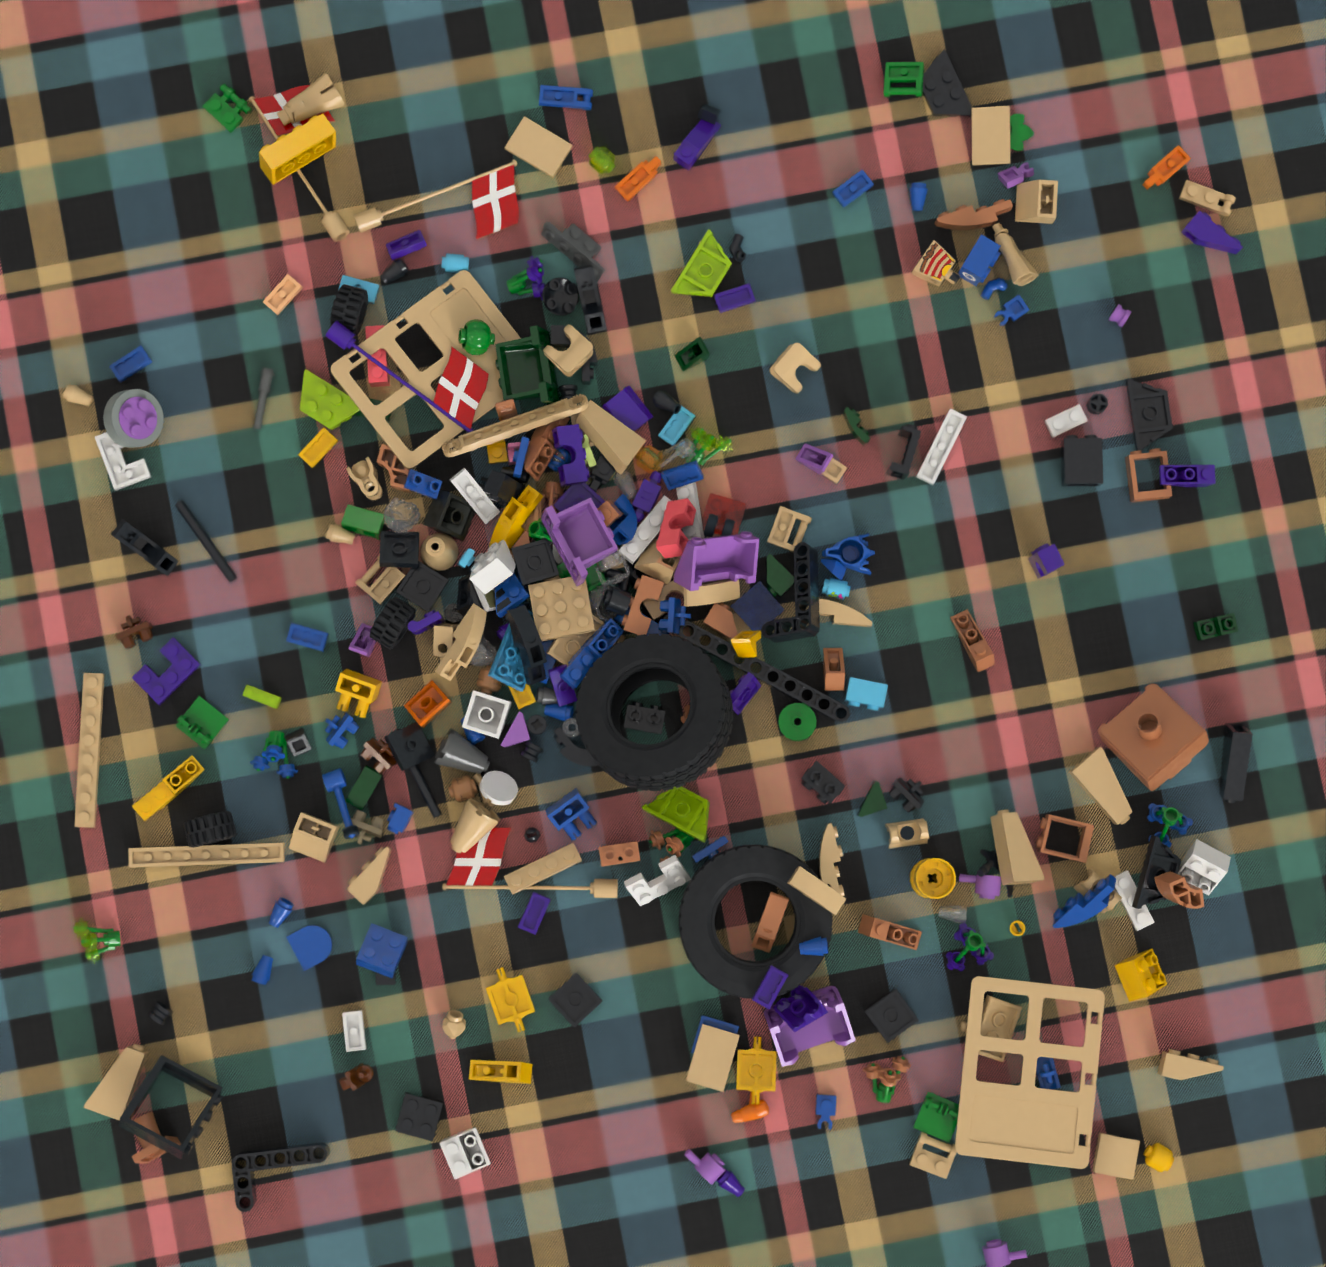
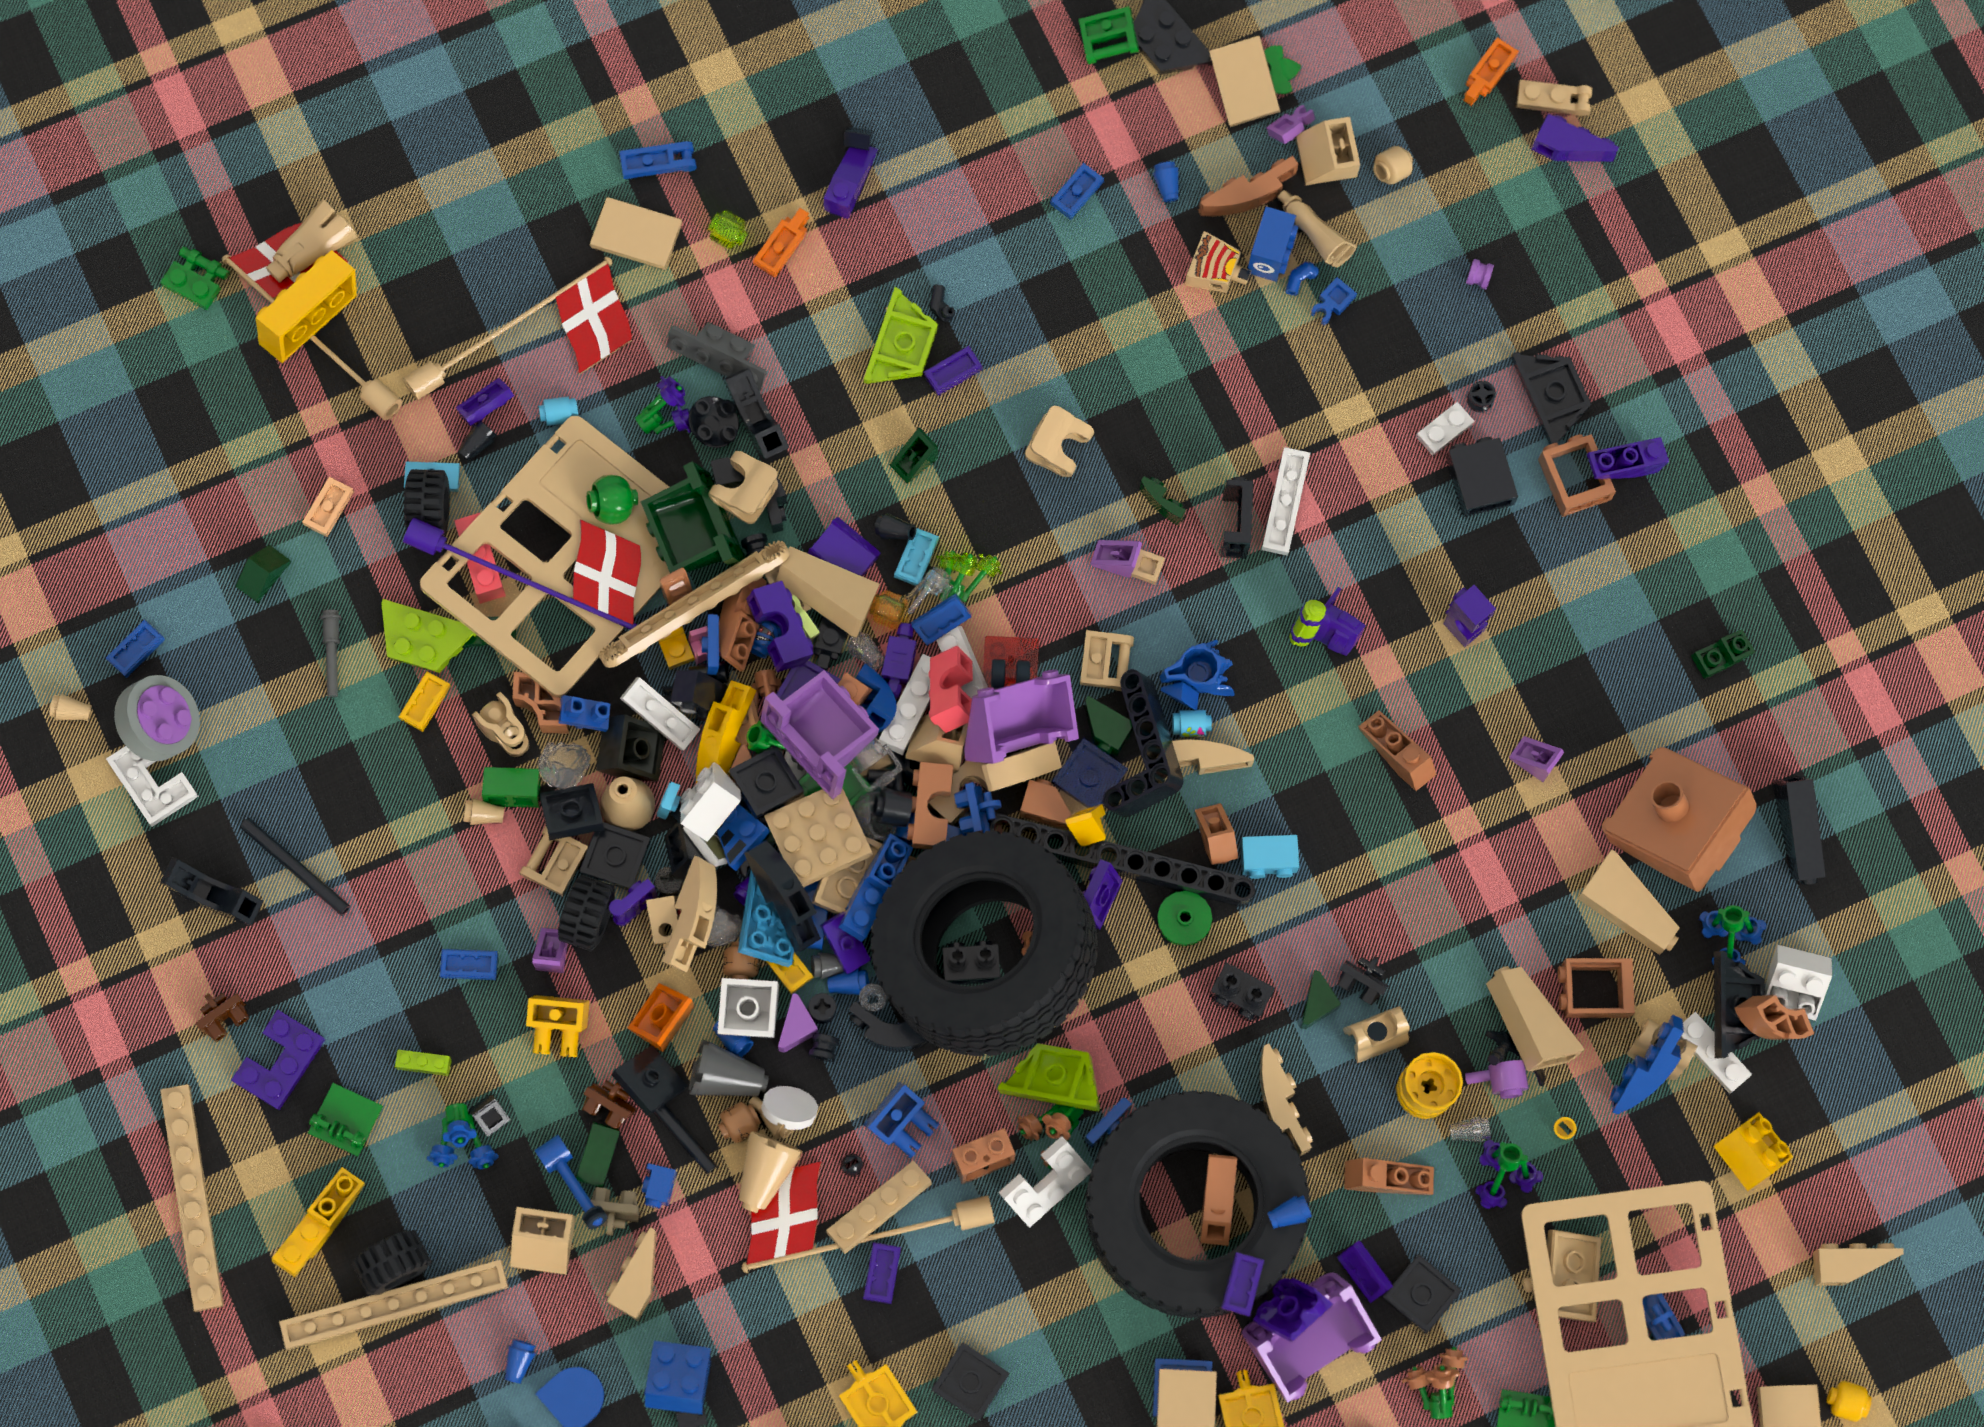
camera: 15 degrees left, 10 degrees down
(227, 330) = (262, 572): none -> dark green slope
(346, 723) = (551, 1071): blue hips -> none
(816, 890) = (1273, 1132): tan slope -> none
(856, 991) = (1364, 1271): none -> dark purple plate
(947, 543) = (1328, 625): none -> dark purple piece
(1066, 668) = (1536, 757): none -> medium lavender slope
(1079, 221) = (1393, 165): none -> tan head

